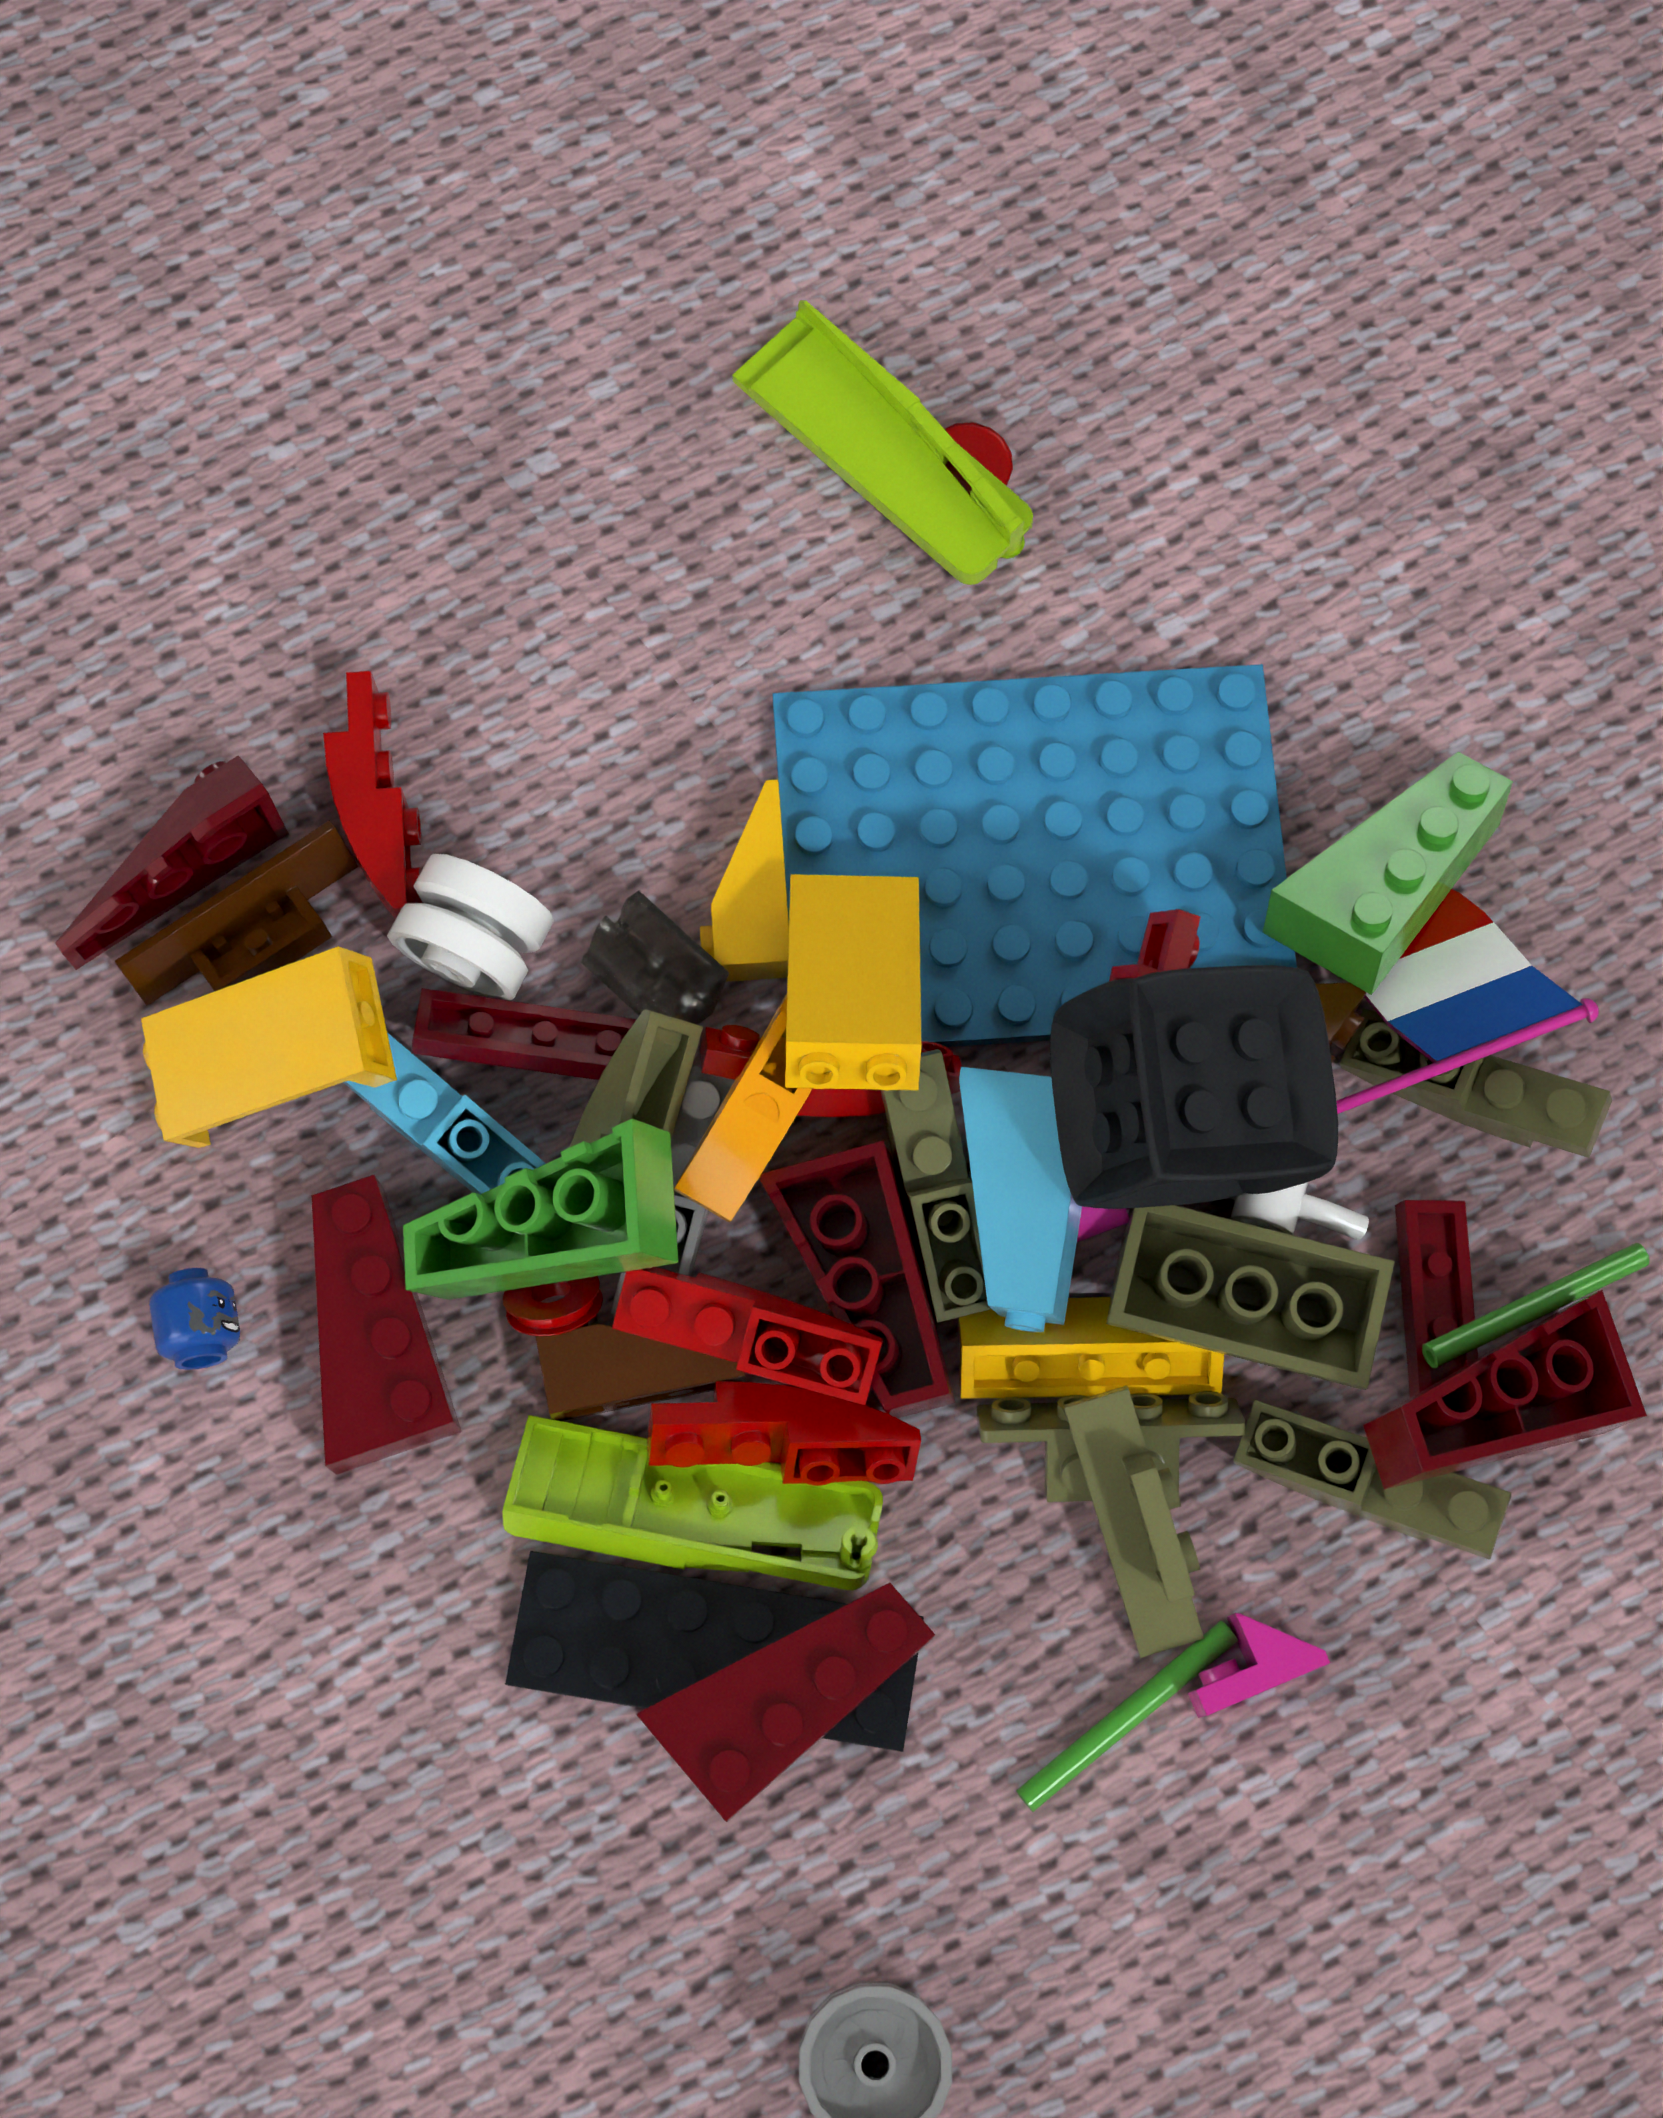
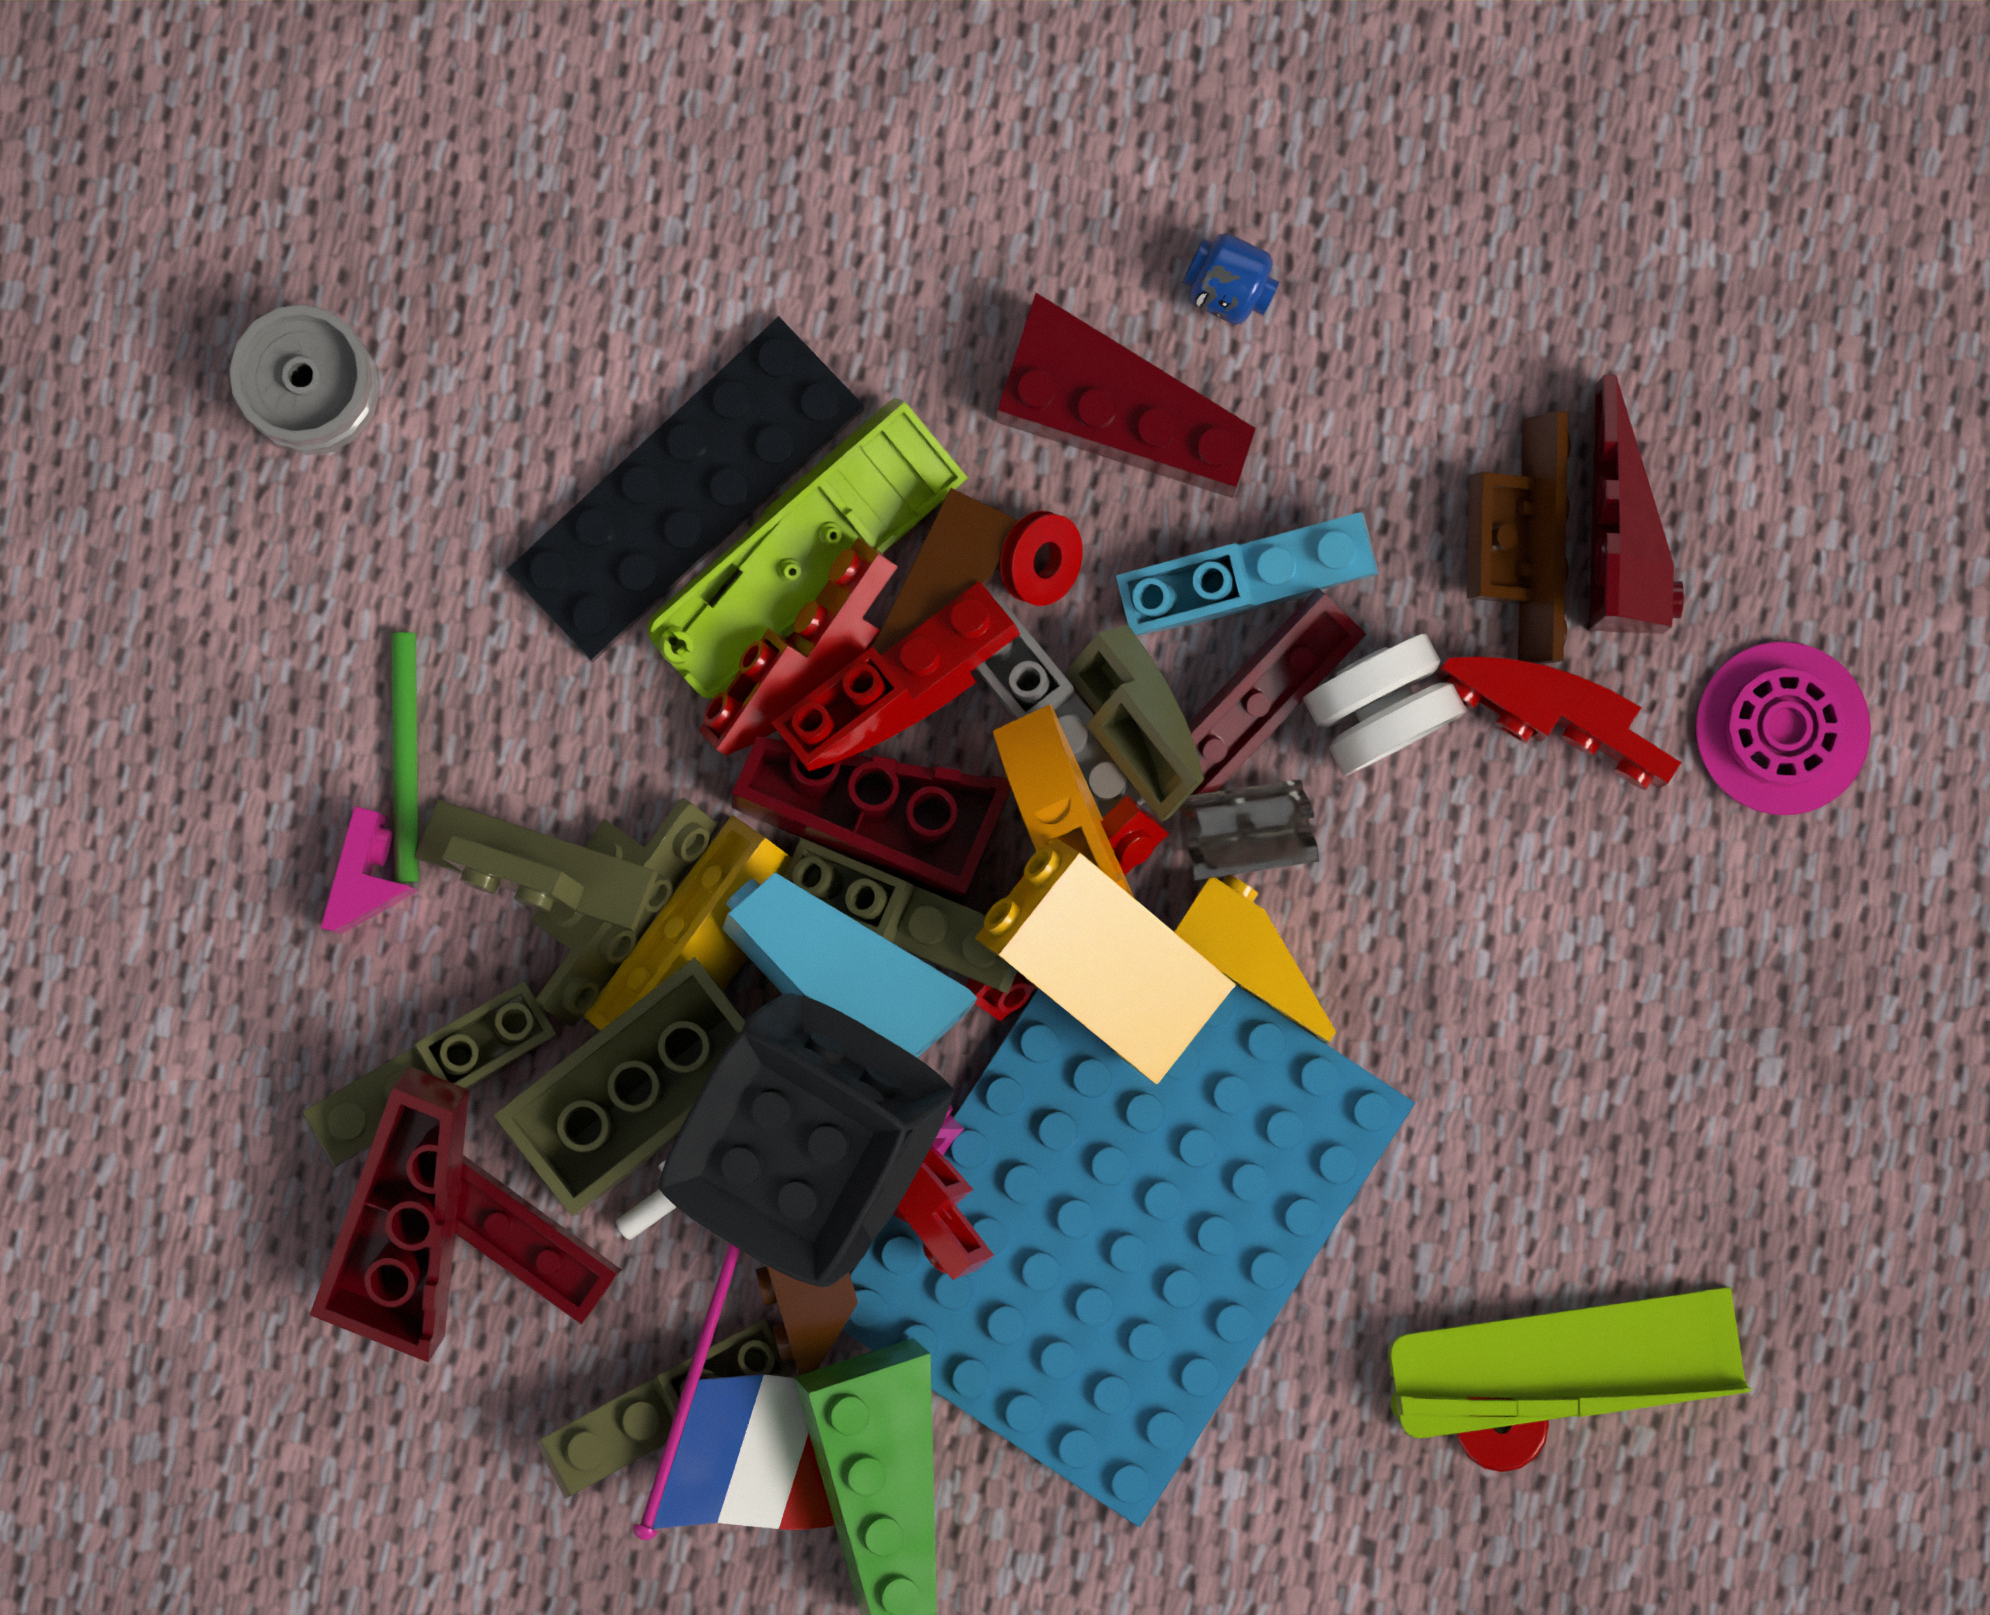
camera: 130 degrees right, 10 degrees up
(257, 625) = (1783, 728): none -> dark pink wheel
(266, 1043) = (1401, 478): yellow panel -> none
(571, 1219) = (1080, 601): bright green wedge -> none
(775, 1704) = (605, 489): dark red wedge -> none
(1535, 1305) = (460, 1313): bright green piece -> none

